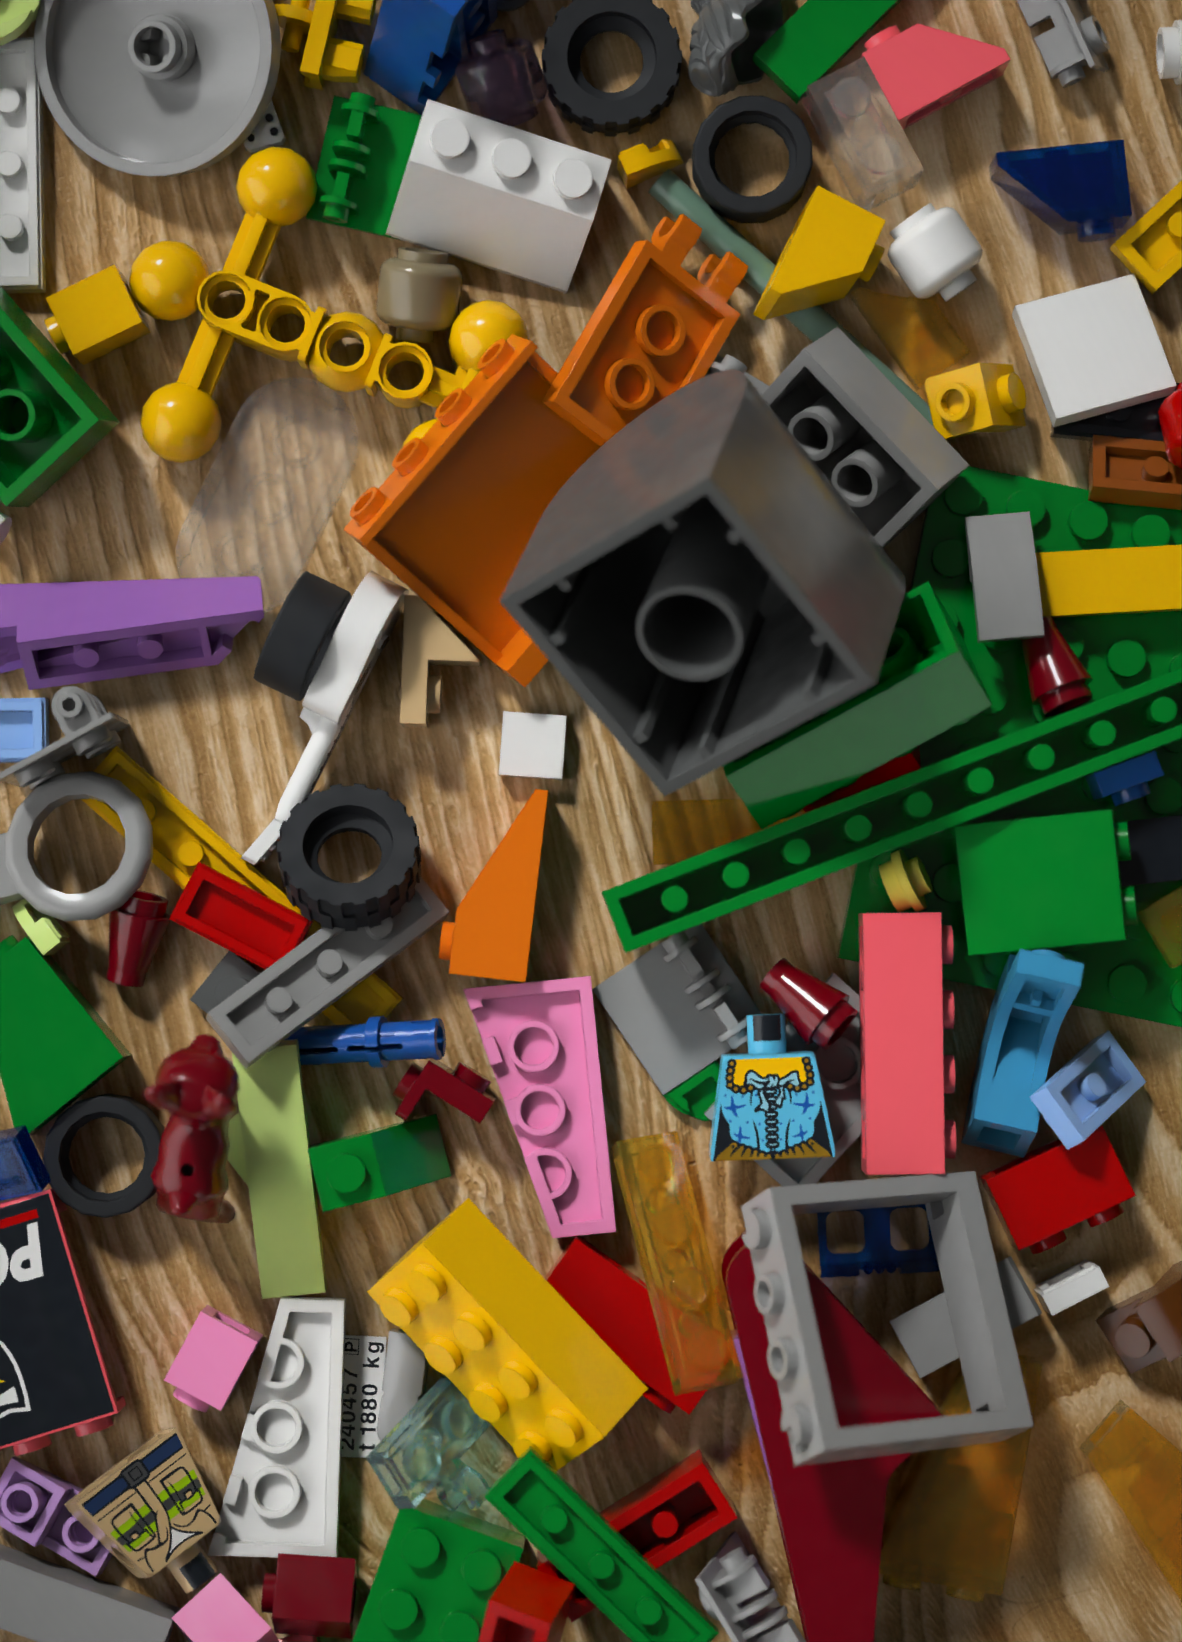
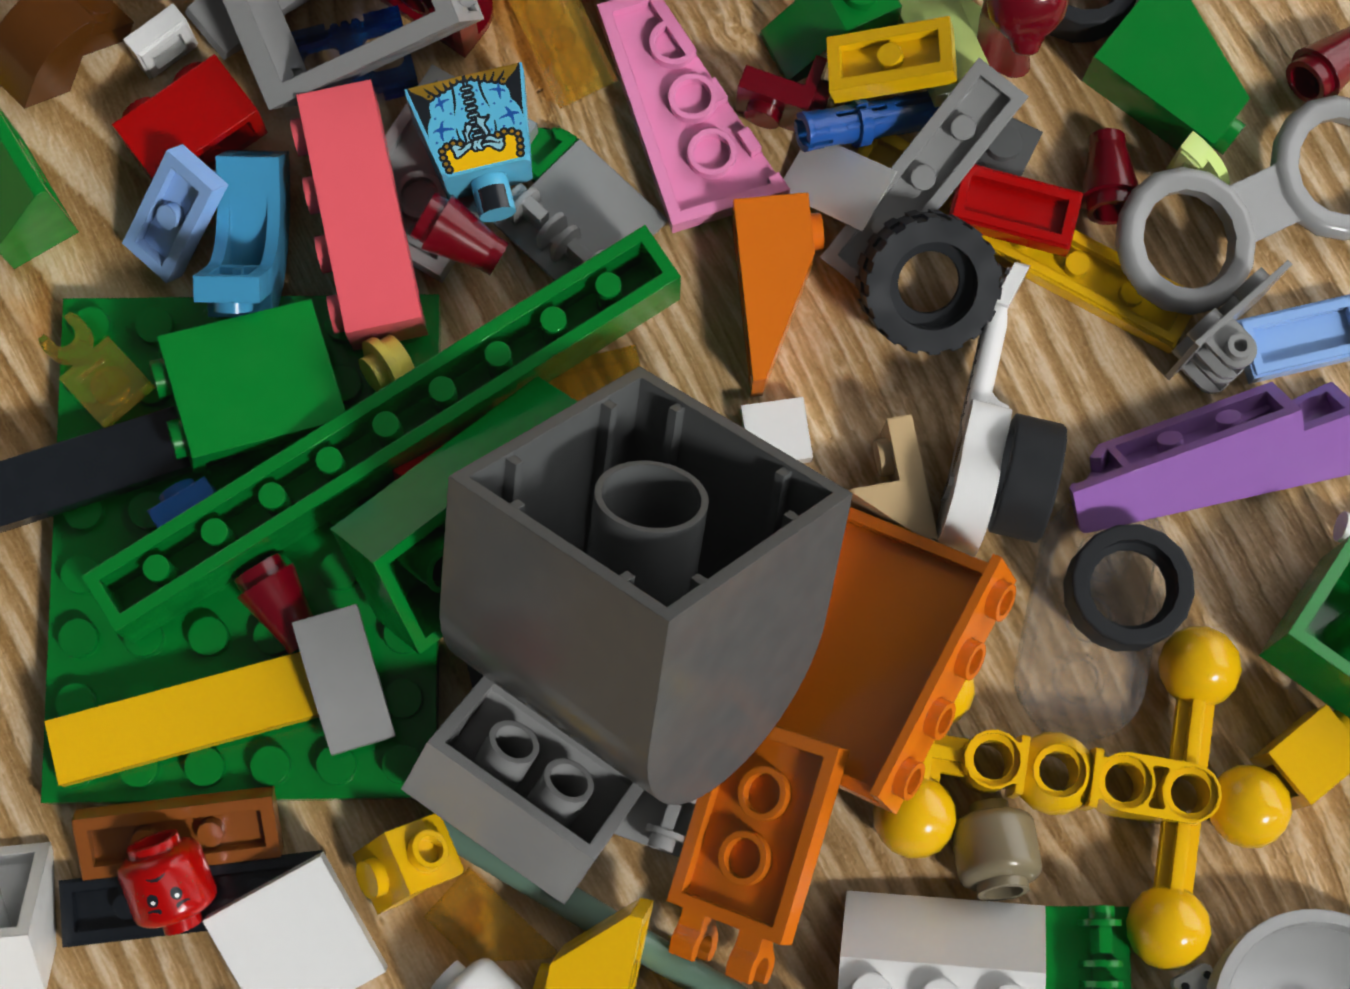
camera: 170 degrees right, 10 degrees down
(202, 469) = (1163, 553): none -> black tyre
(333, 1089) = (891, 59): none -> yellow plate
(412, 980) = (840, 183): none -> white sticker

